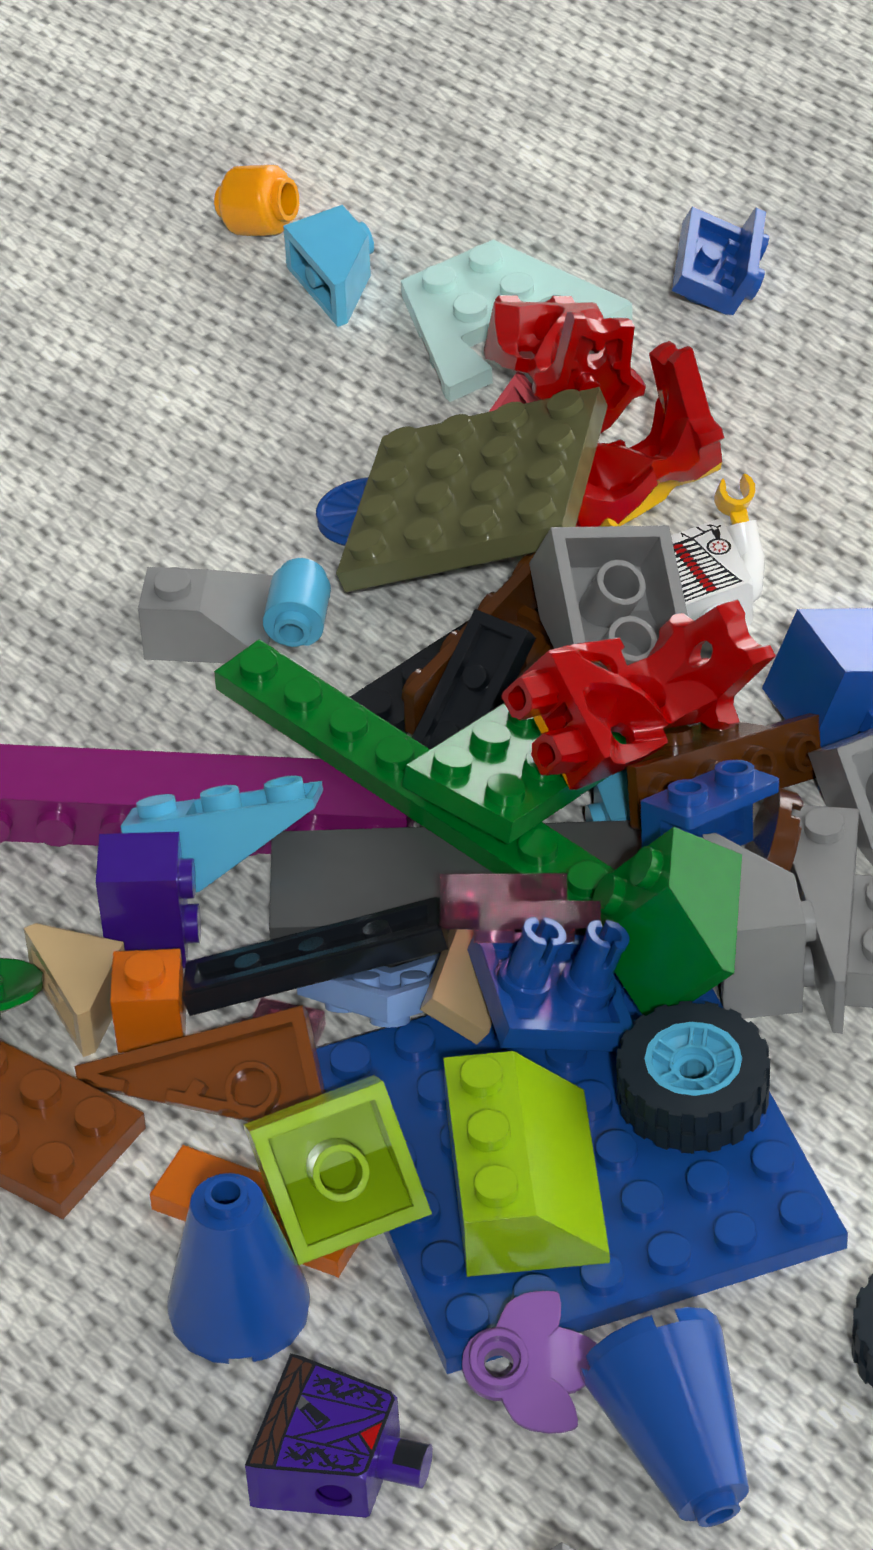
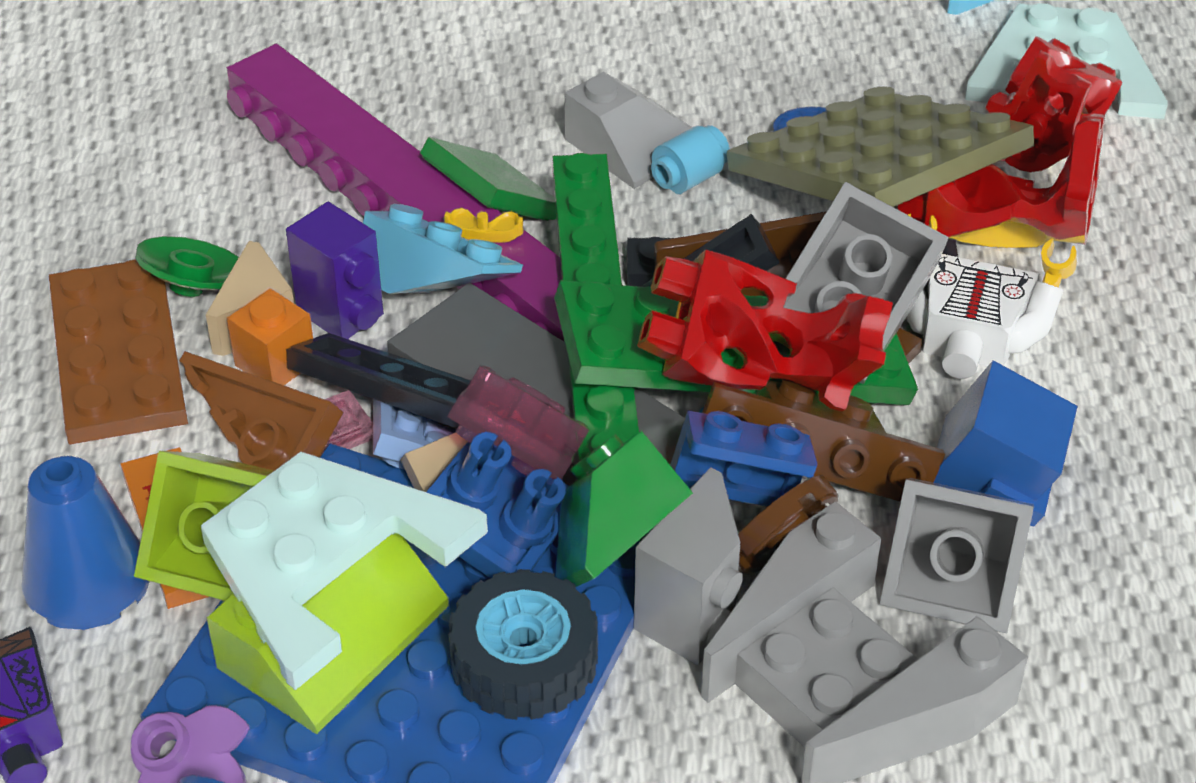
camera: 40 degrees right, 0 degrees up
(157, 733) = (490, 179): none -> green tile
(239, 769) = (501, 229): none -> yellow piece
(469, 1101) = (306, 530): none -> light aqua wing

